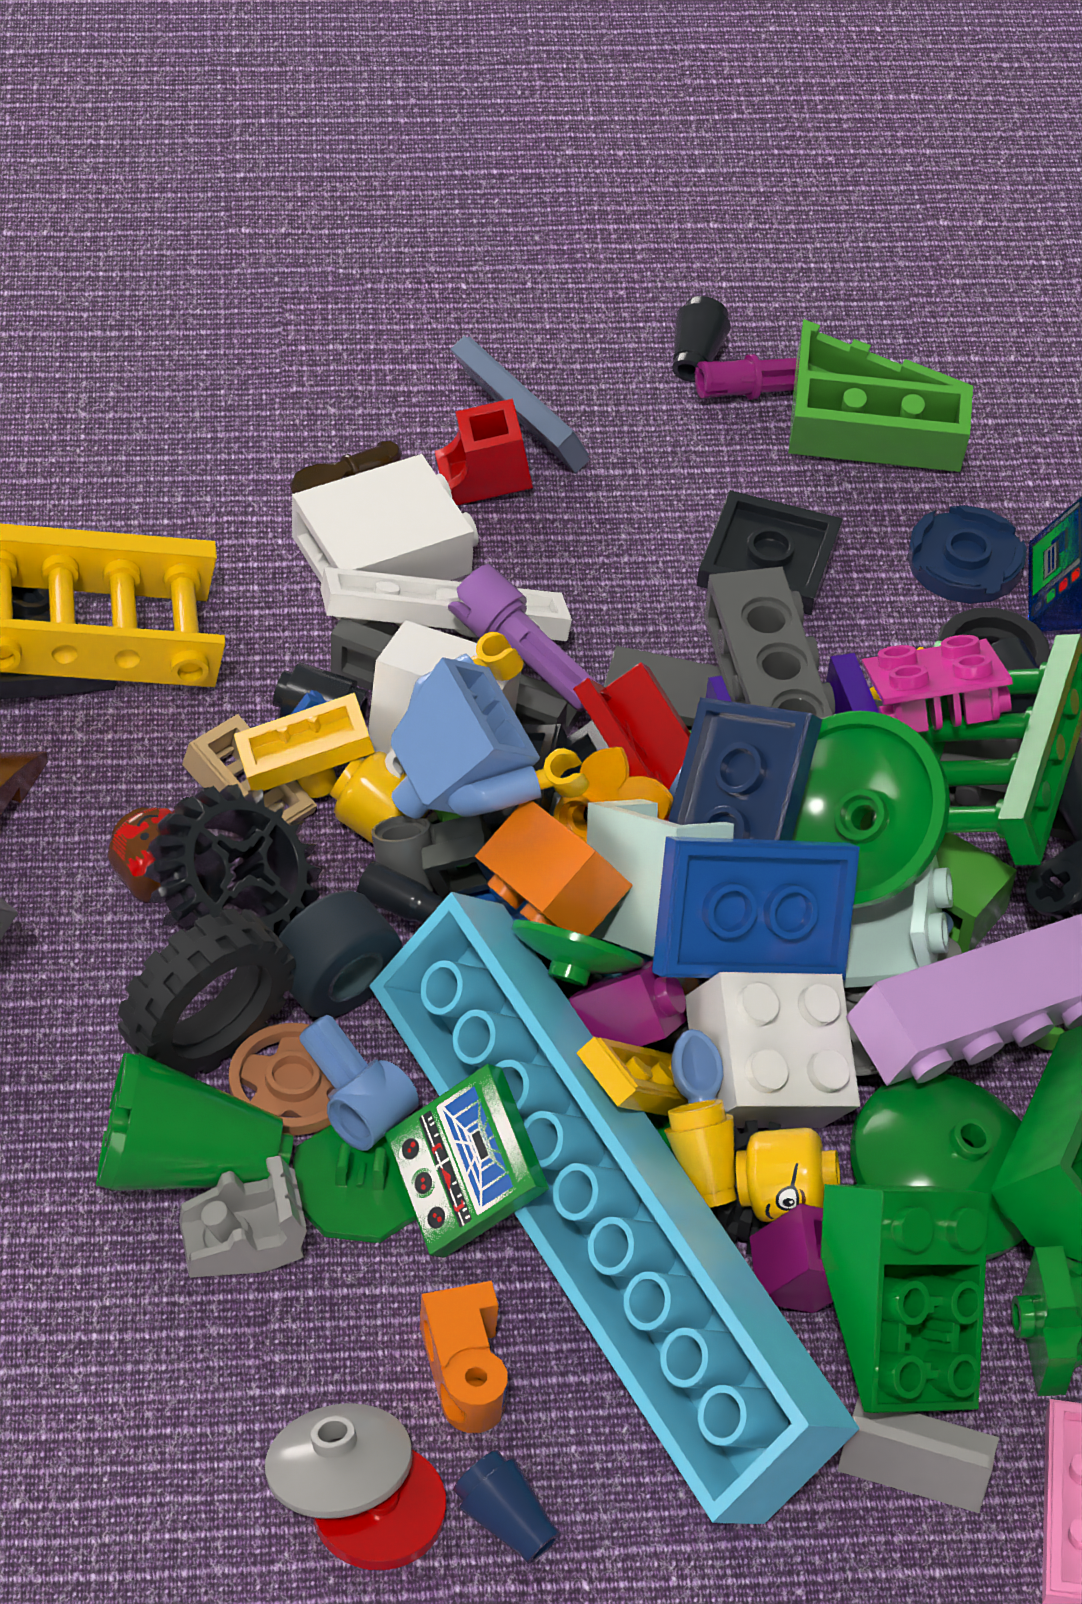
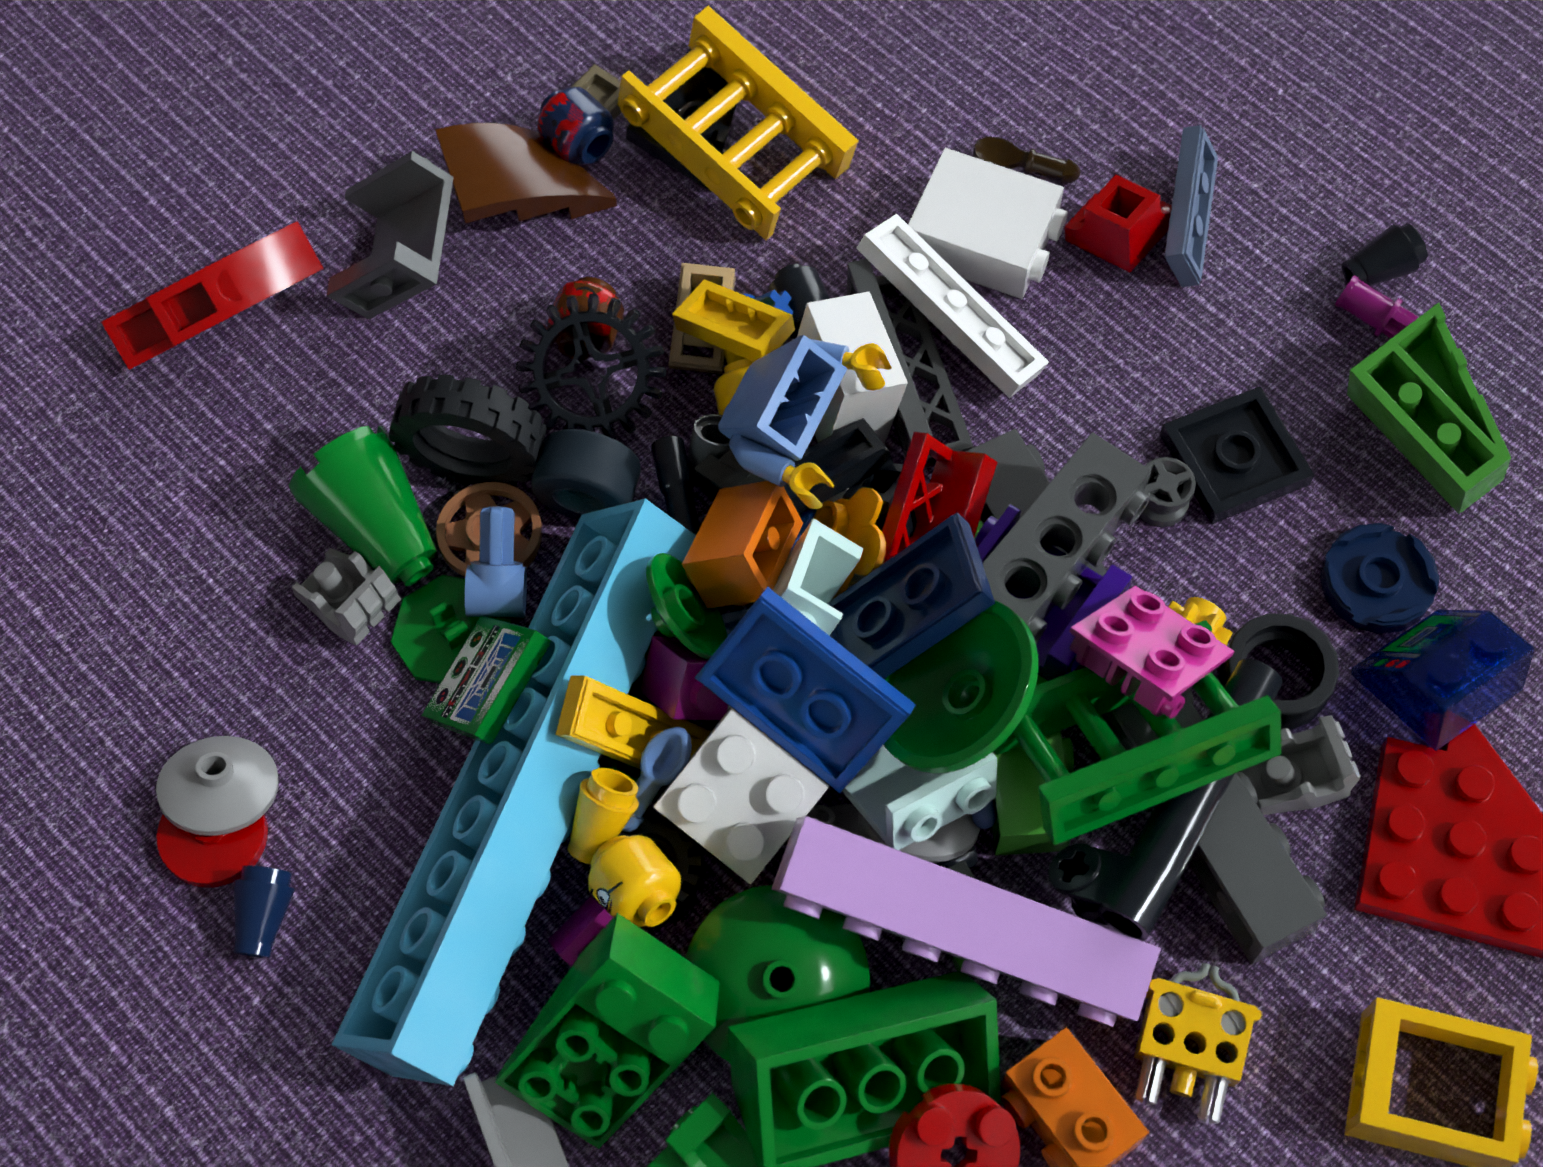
camera: 55 degrees right, 15 degrees up
(464, 1370) = (350, 794): orange leg -> none
(499, 607) = (952, 338): medium lavender piece -> none

